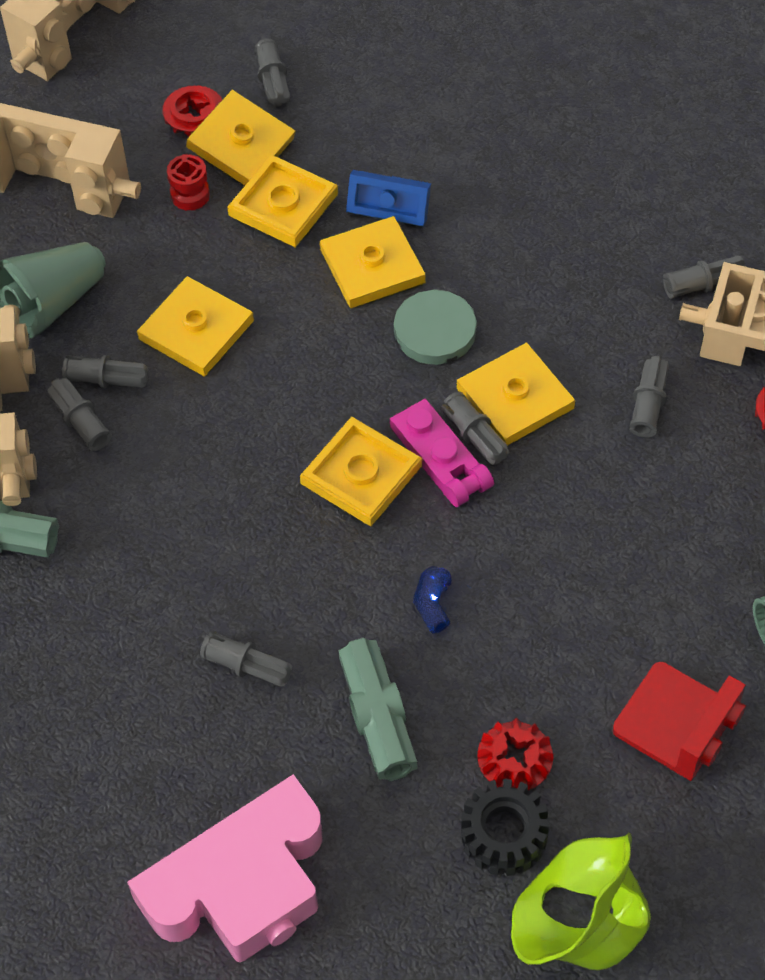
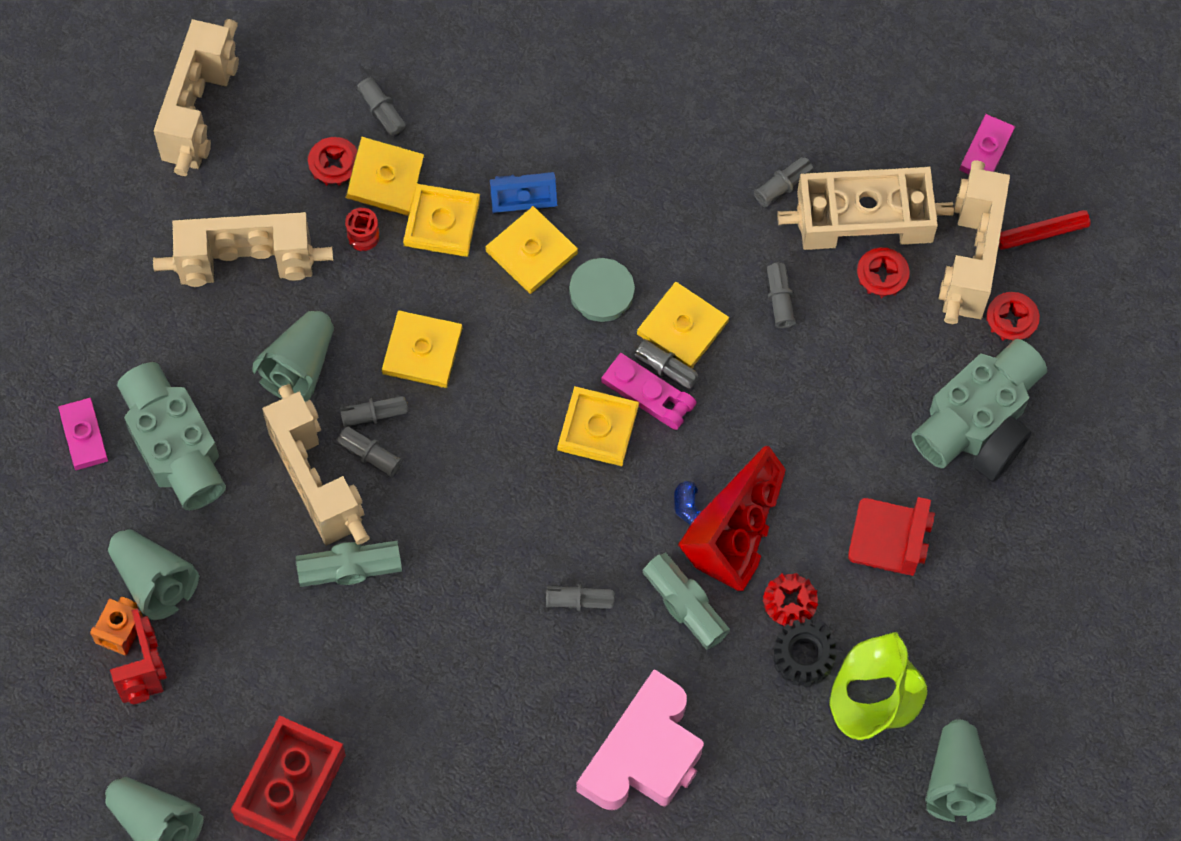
camera: 25 degrees left, 10 degrees up
(474, 641) = (729, 530): none -> red wedge

